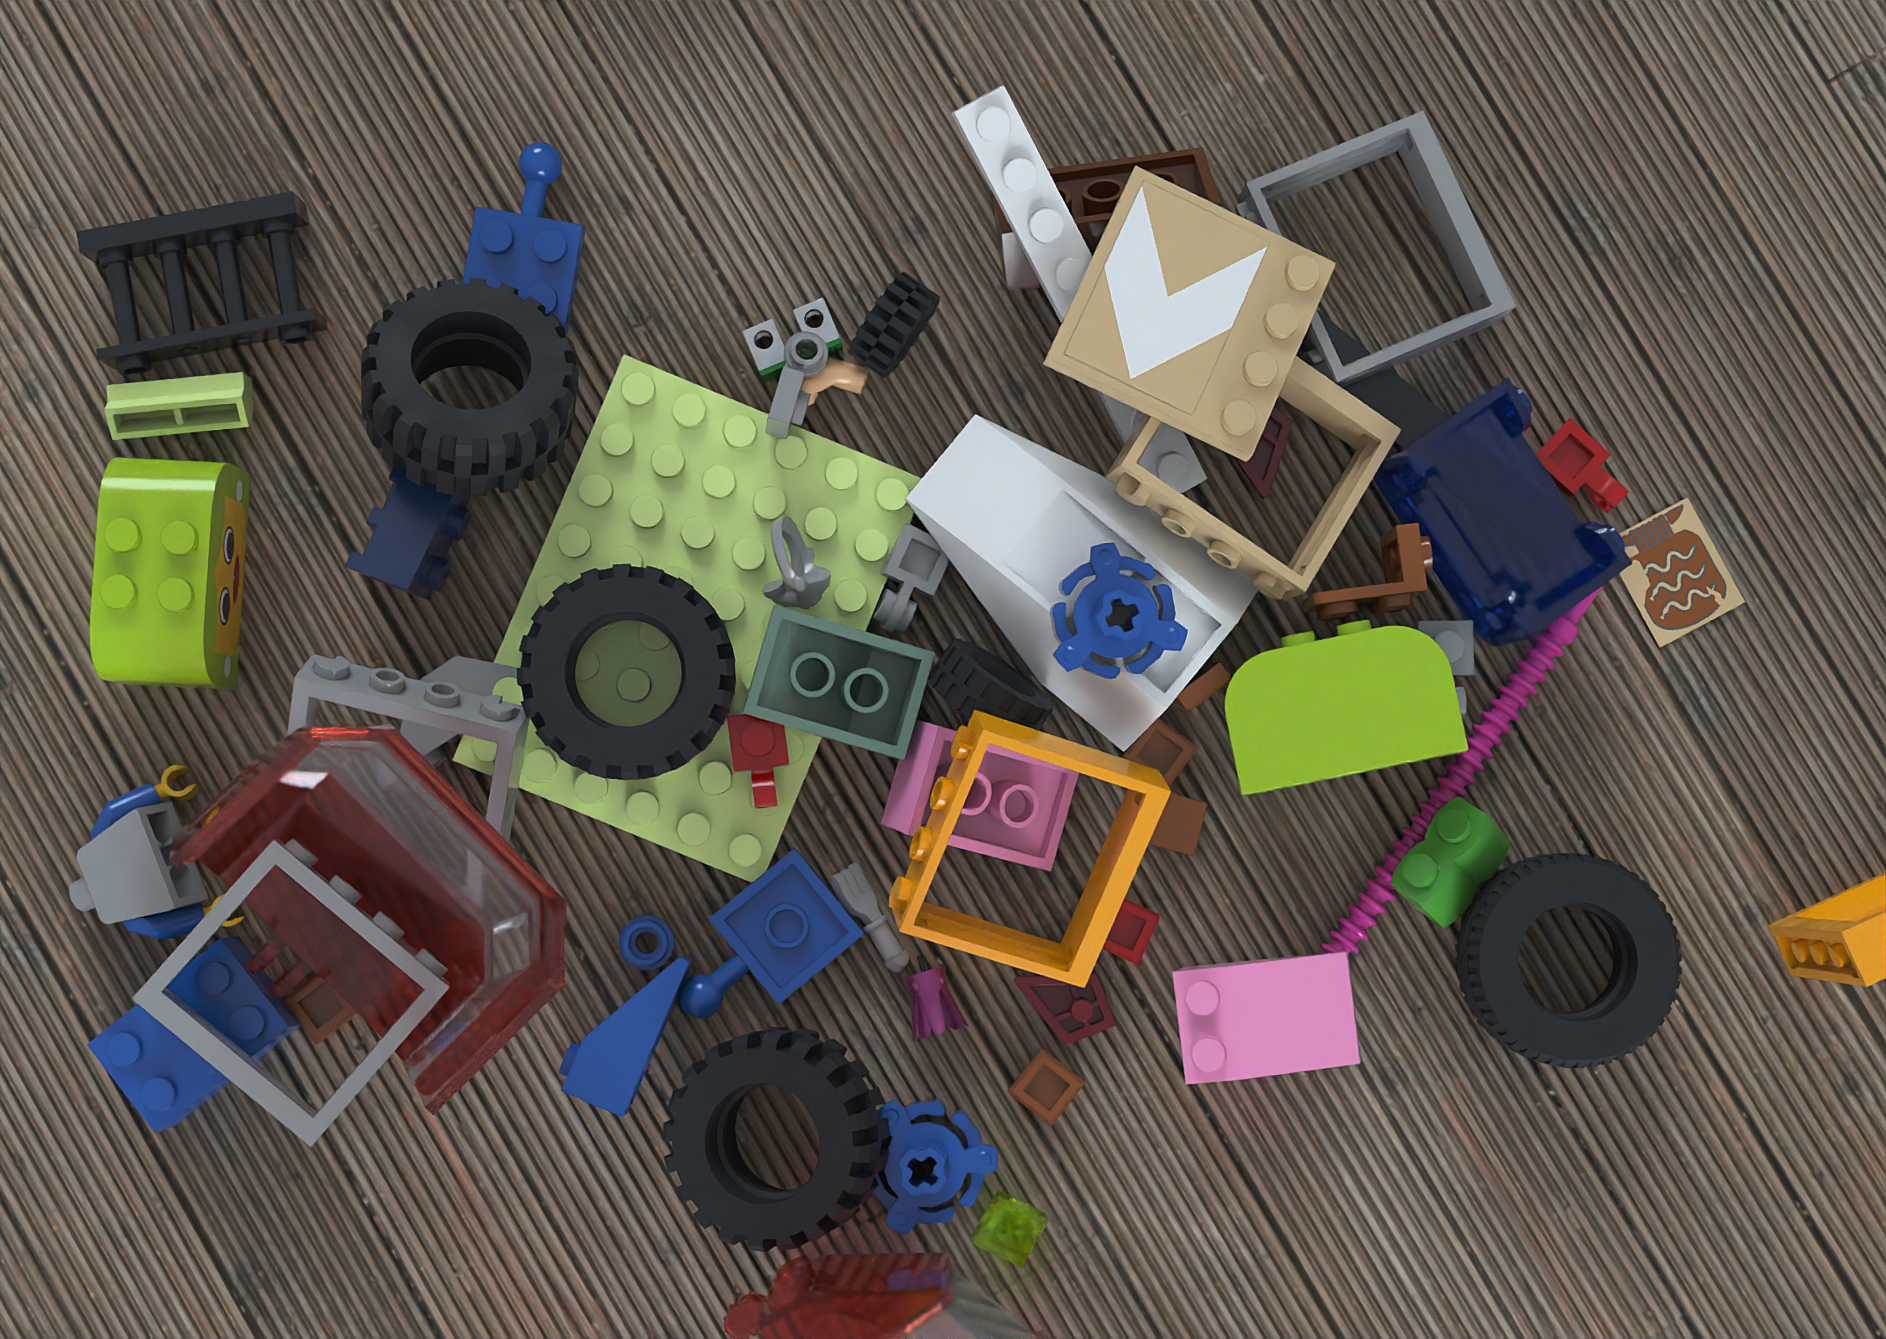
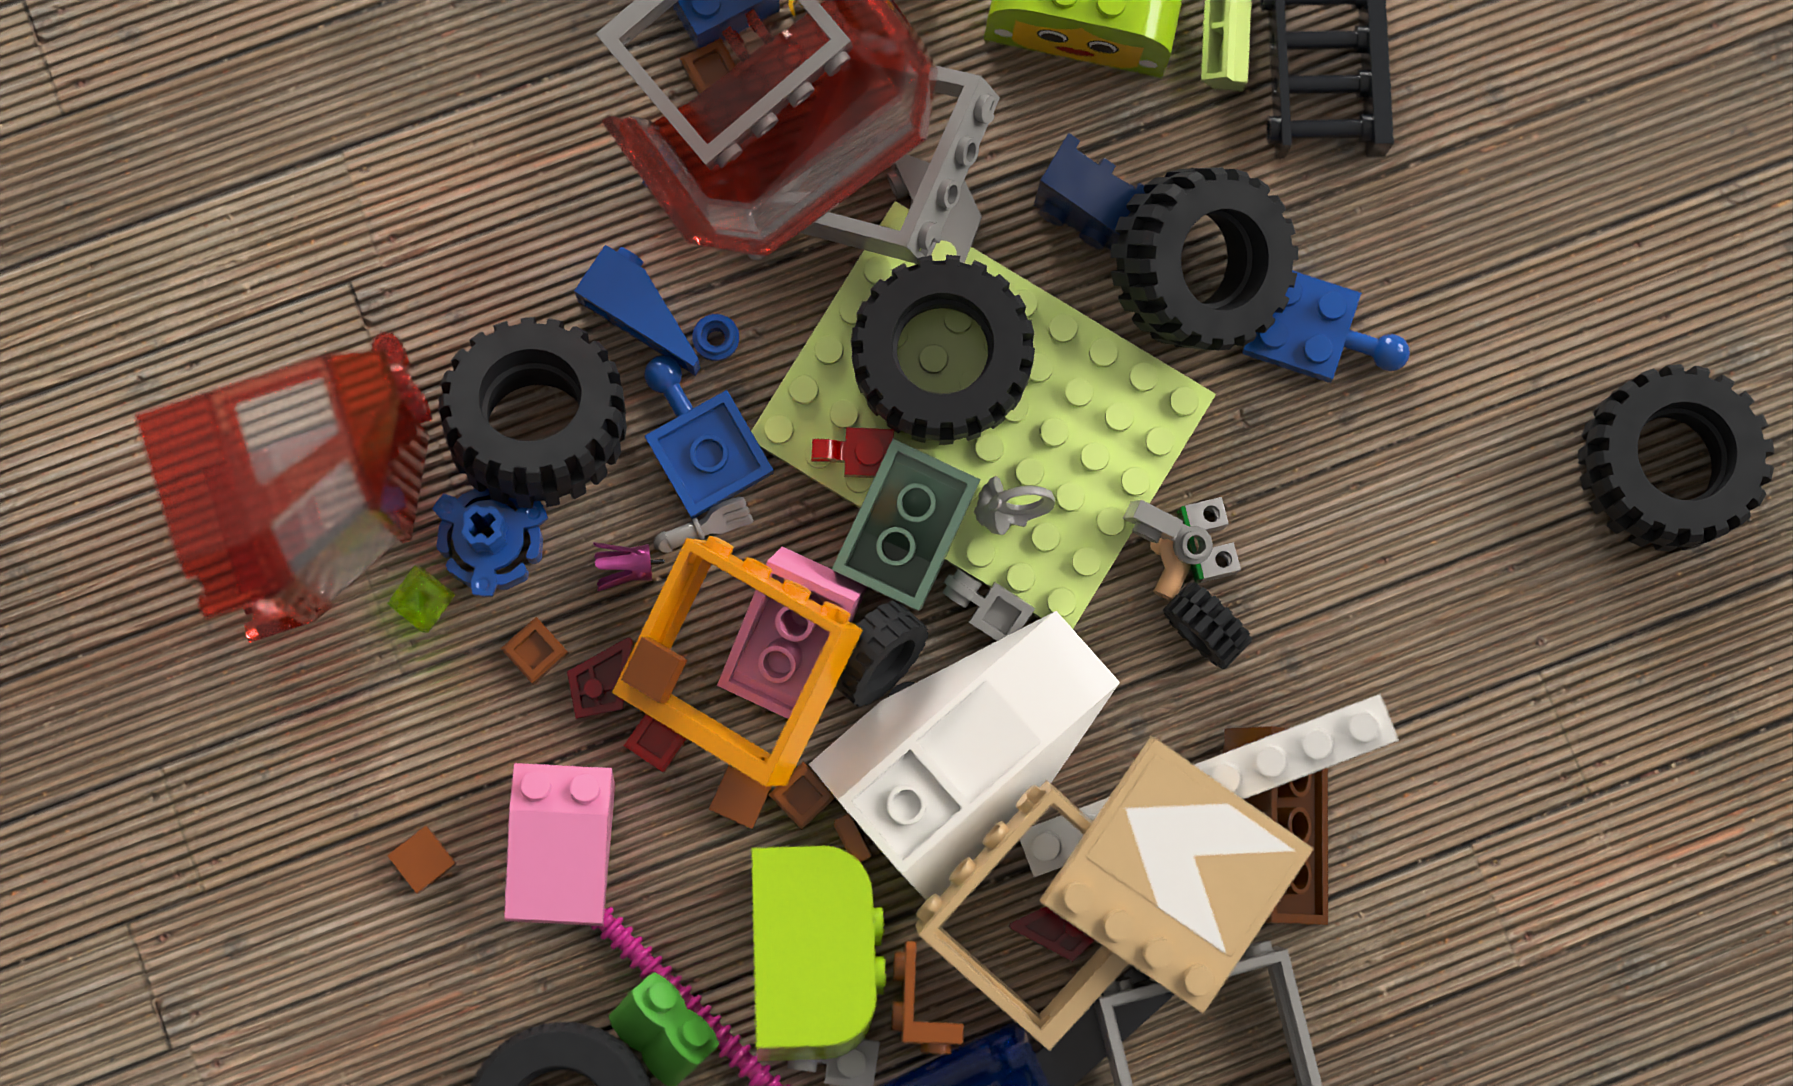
camera: 90 degrees right, 5 degrees down
(1054, 942) = (654, 669): none -> dark orange tile
(1096, 602) = (943, 770): blue piece -> none
(1304, 1170) = (422, 859): none -> dark orange tile

